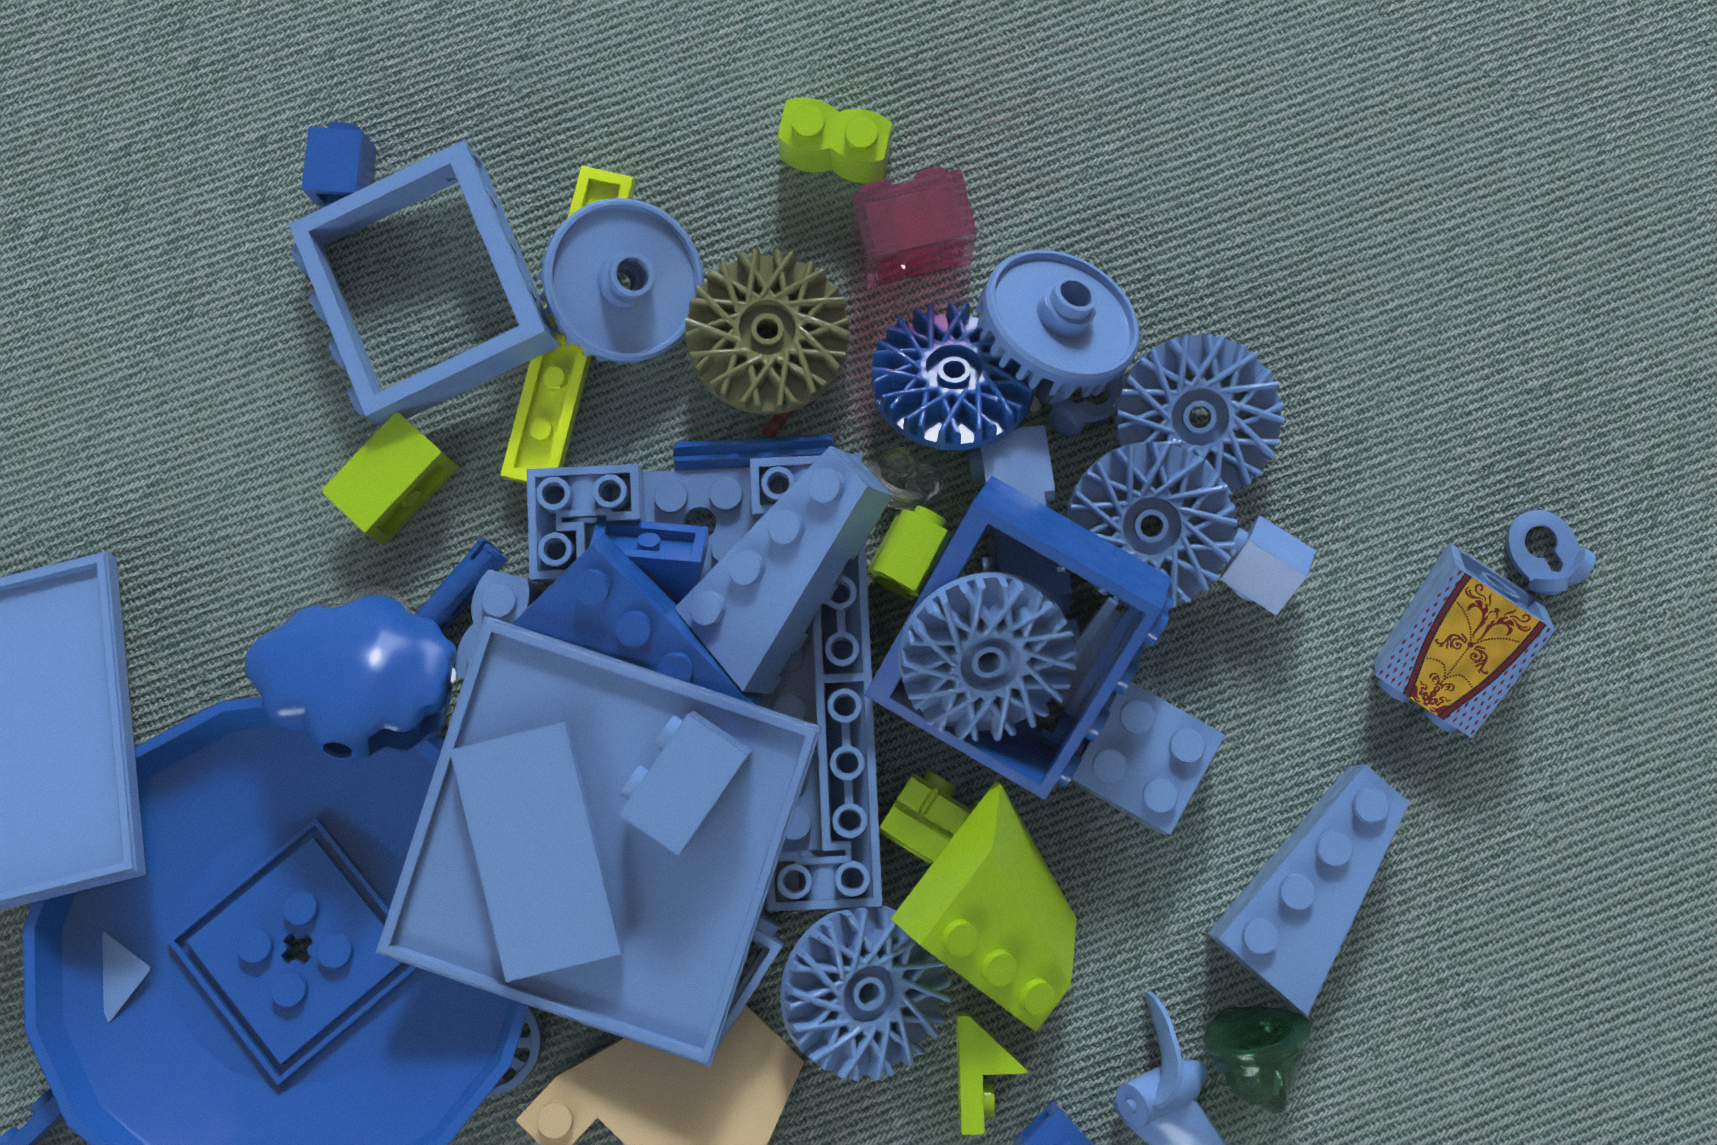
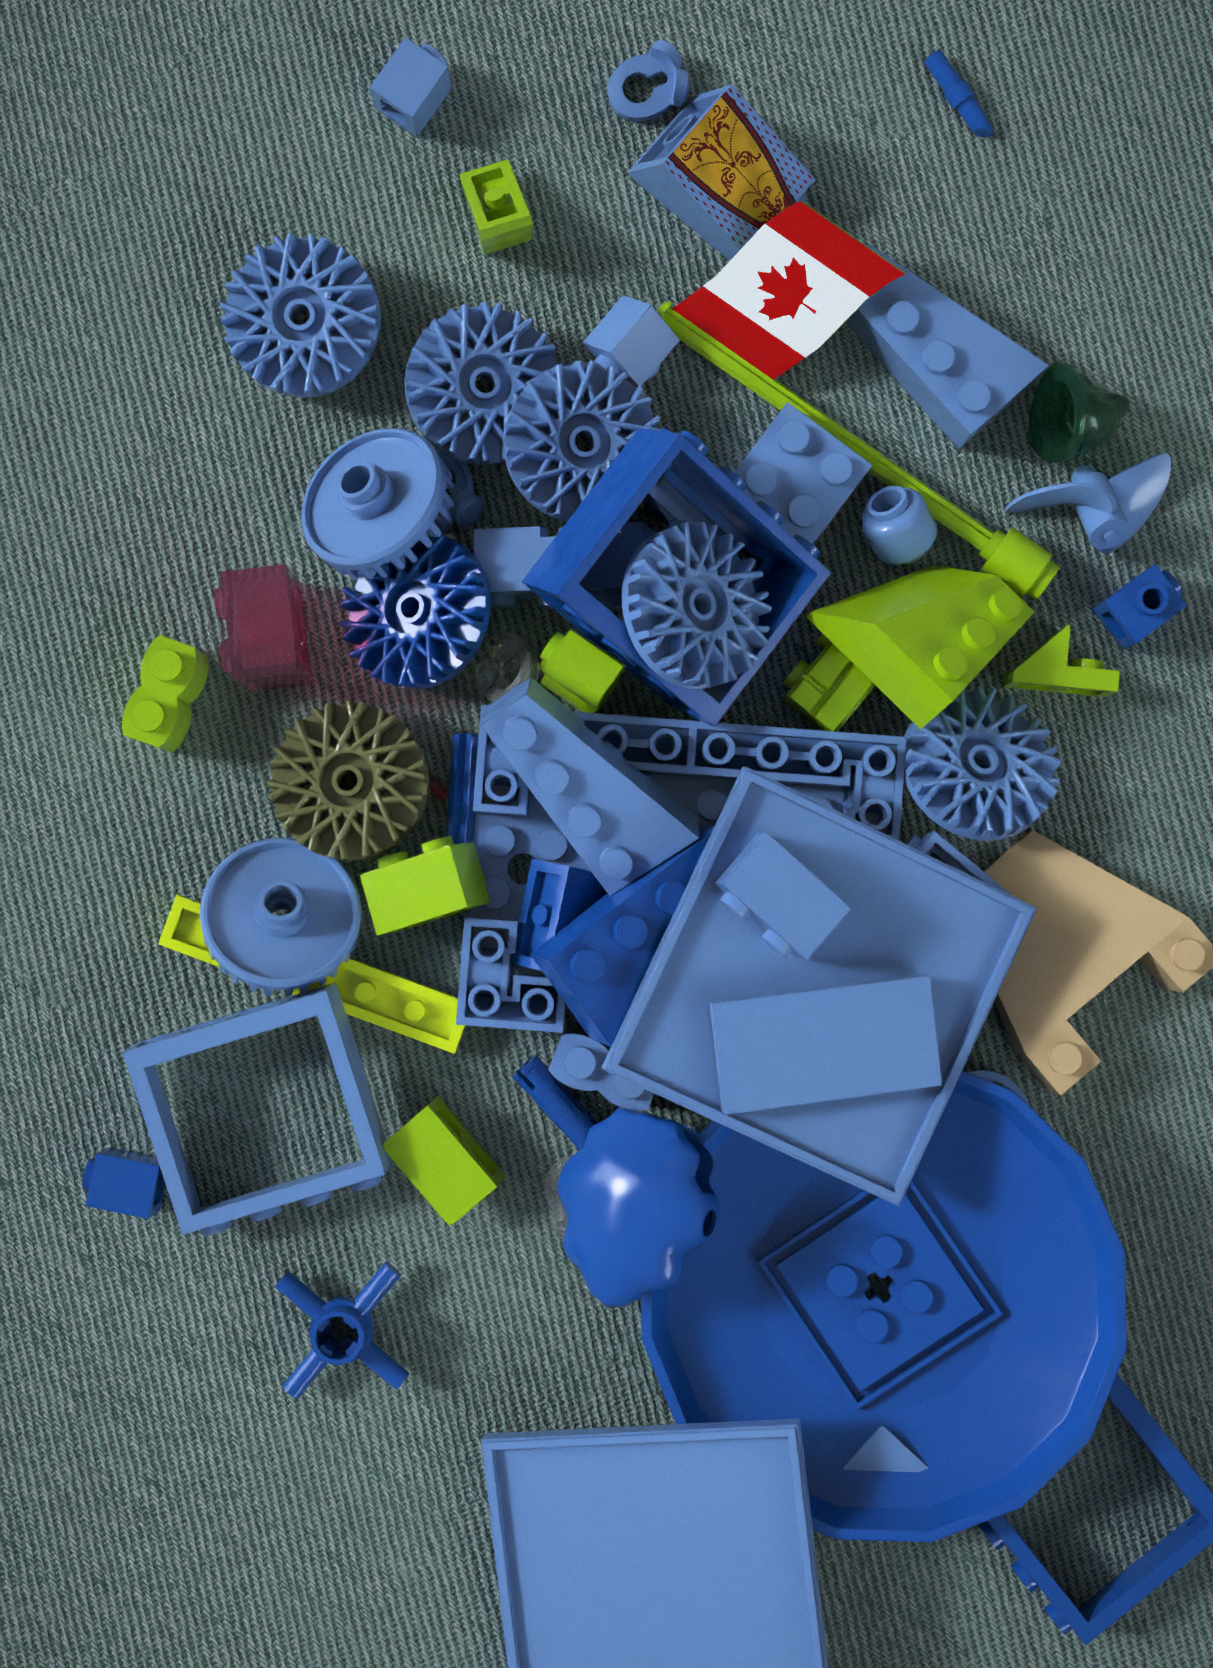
camera: 90 degrees left, 5 degrees up
(223, 409) = (357, 1315): none -> blue bar
(666, 421) = (424, 887): none -> lime brick
(1111, 873) = (898, 525): none -> medium blue head
(1247, 190) = (281, 285): none -> medium blue wheel
(1332, 720) = (783, 303): none -> flag
(1389, 408) = (497, 206): none -> lime slope
(1503, 307) = (411, 85): none -> medium blue brick
(1593, 887) = (959, 94): none -> blue piece

